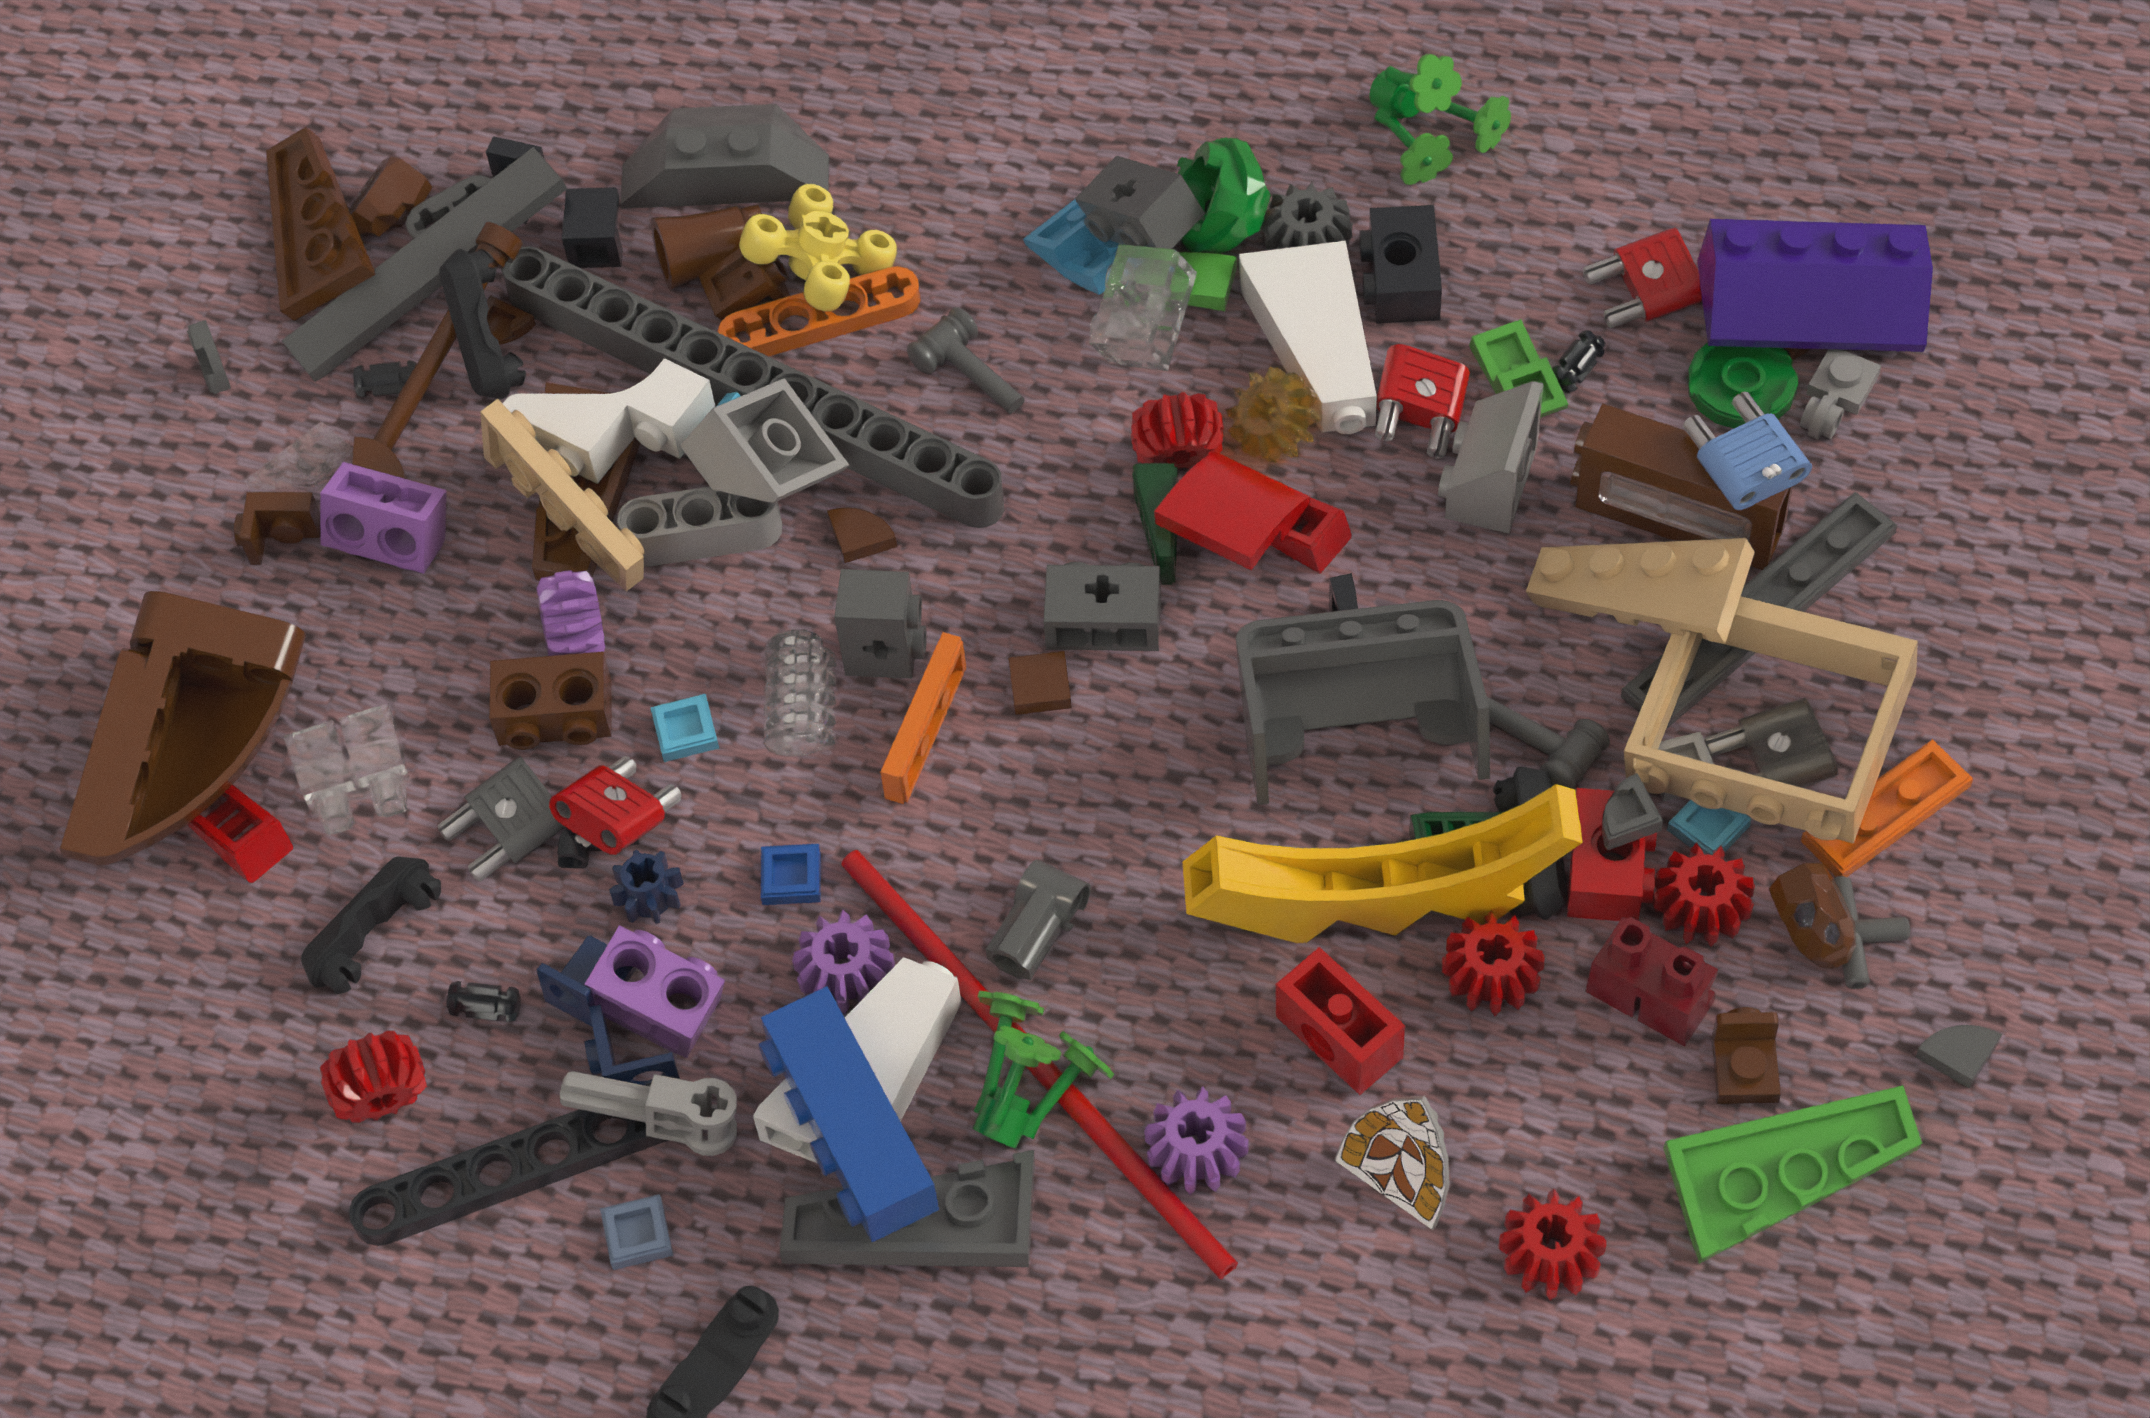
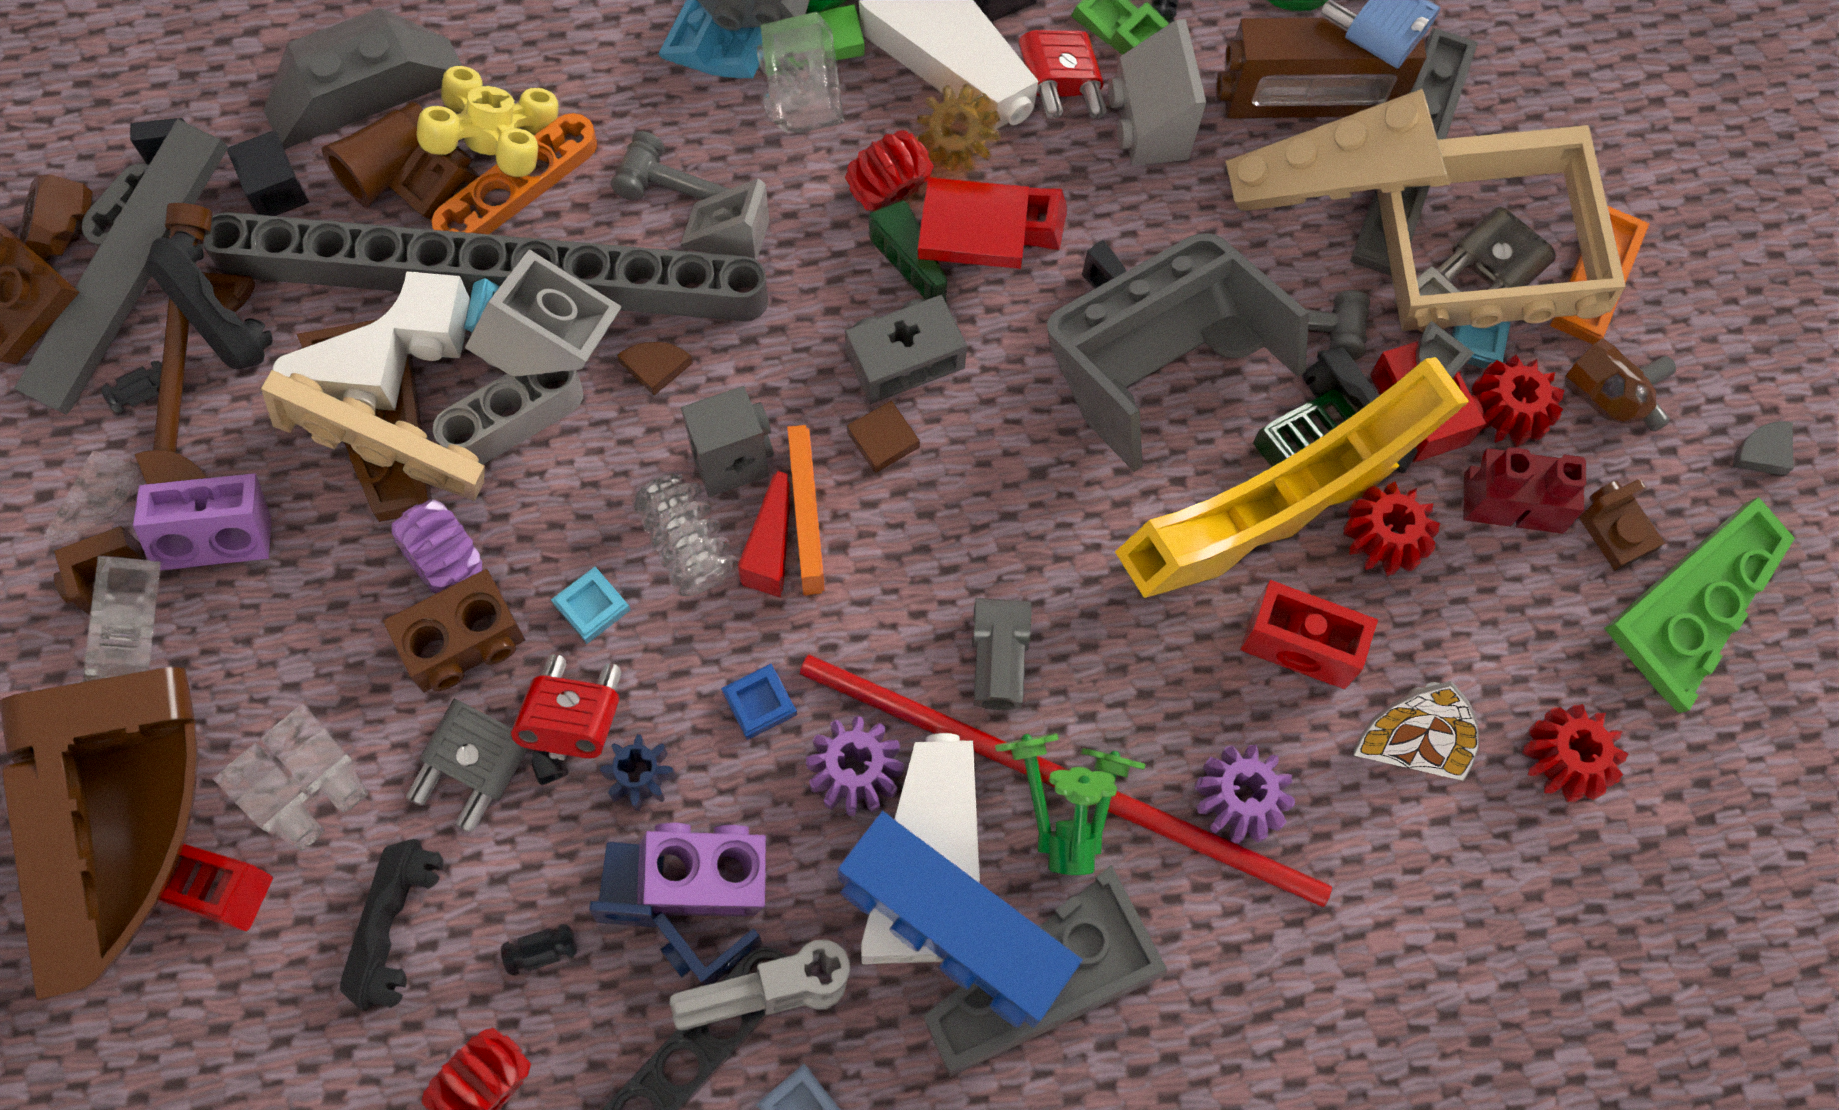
camera: 35 degrees left, 10 degrees up
(277, 567) = (121, 617): none -> clear brick
(866, 739) = (766, 548): none -> red slope
(1002, 428) = (730, 221): none -> light grey slope

